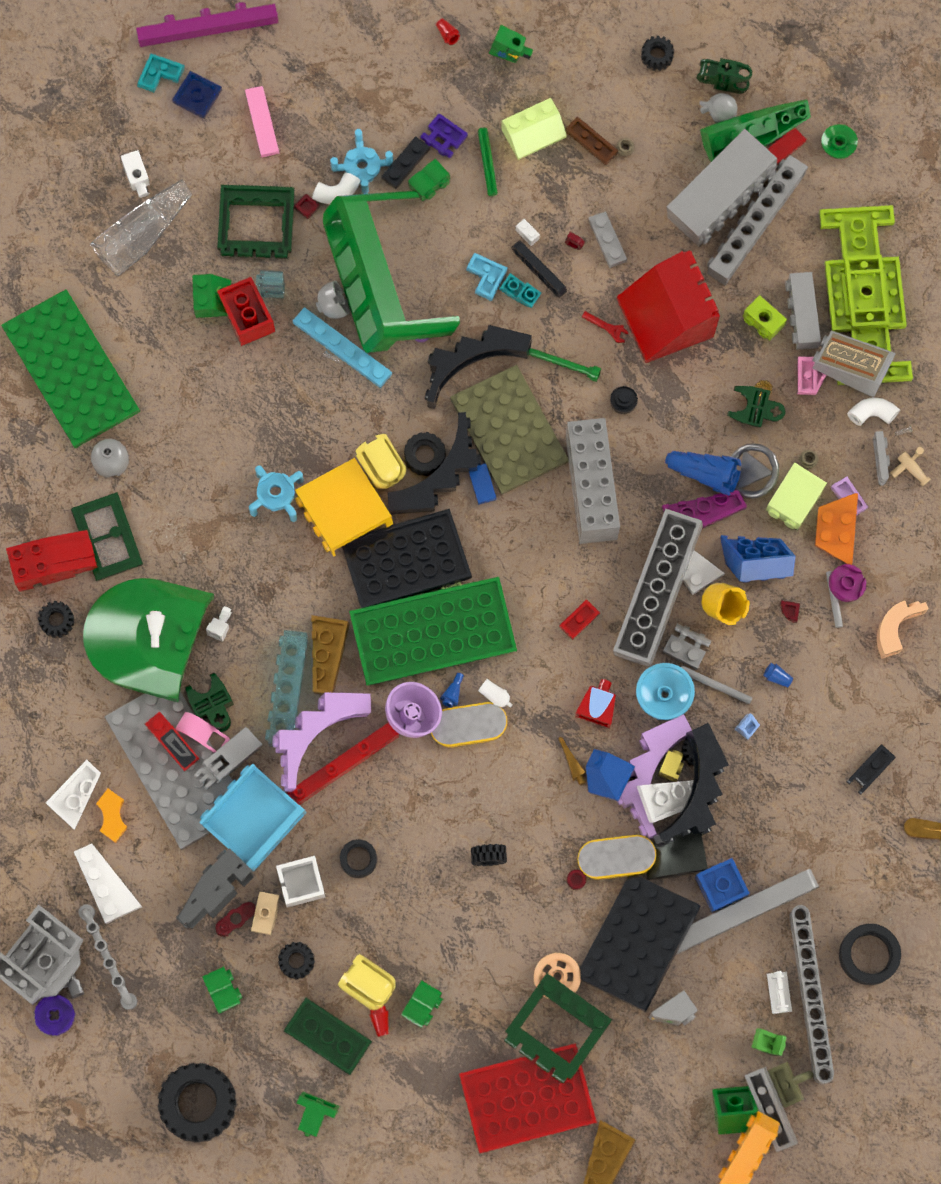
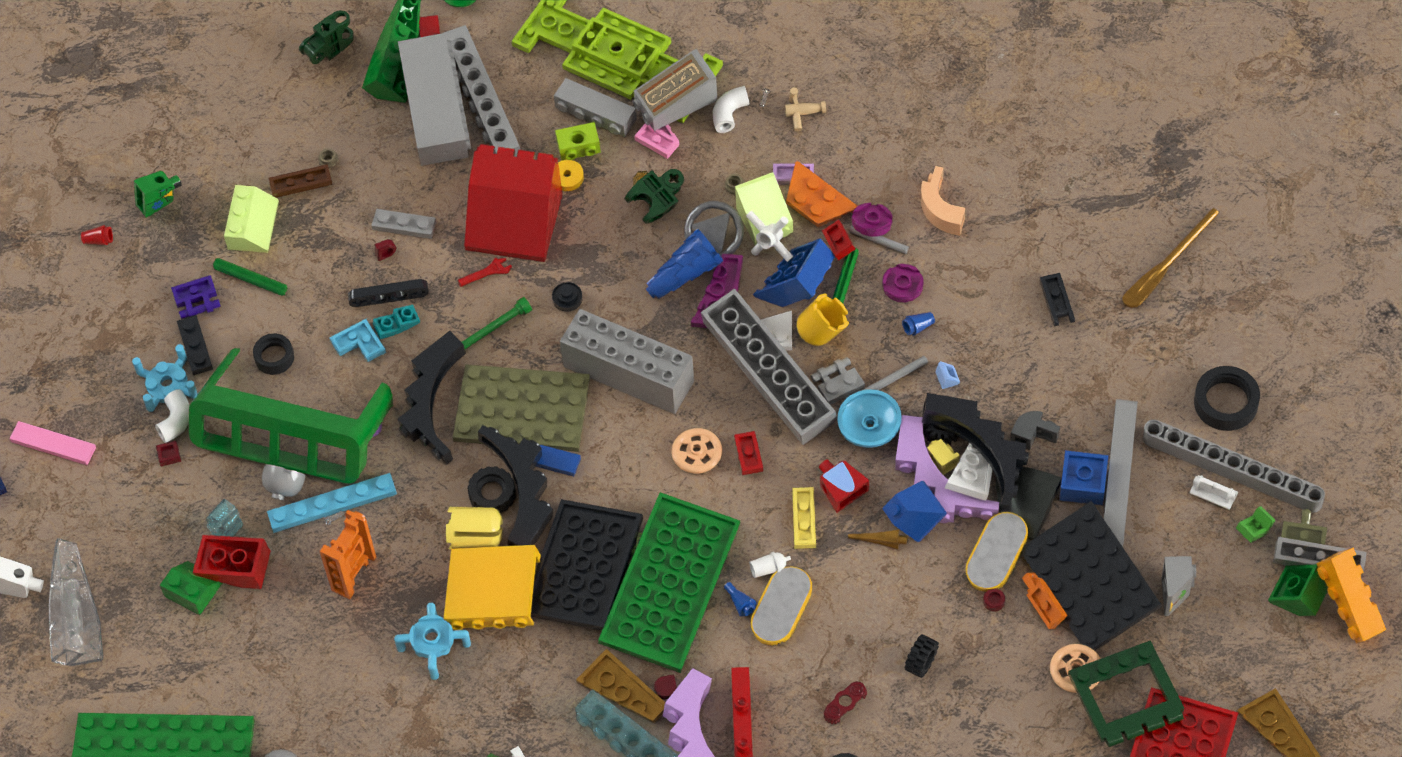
camera: 50 degrees left, 15 degrees down
(256, 196) = (124, 488): dark green hinge -> none
(295, 389) = (348, 554): none -> orange fence
(348, 683) = (665, 686): none -> dark red tile
(413, 710) = (736, 639): lavender piece -> none
(429, 180) = (229, 332): green brick -> none
(432, 823) = (835, 711): none -> dark red piece
(434, 209) = (273, 367): none -> black tyre
(527, 232) = (344, 282): white piece -> none
(544, 571) = (698, 466): none -> light nougat plate
(553, 695) = (804, 518): none -> light yellow tile
(598, 917) = (1044, 601): none -> orange hinge
(657, 43) = (261, 72): black tyre -> none
(720, 107) = (355, 60): light grey hat -> none
(734, 322) = (576, 175): none -> yellow piece
(742, 816) = (1030, 426): none -> dark grey brick
(772, 516) = (769, 236): none -> white bar
(779, 595) = (845, 275): none -> green axle
(790, 610) = (864, 280): dark red tile -> none
(807, 641) = (903, 283): none -> magenta tile
(809, 569) = (838, 240): none -> red plate
(881, 459) = (776, 127): light grey hinge -> none

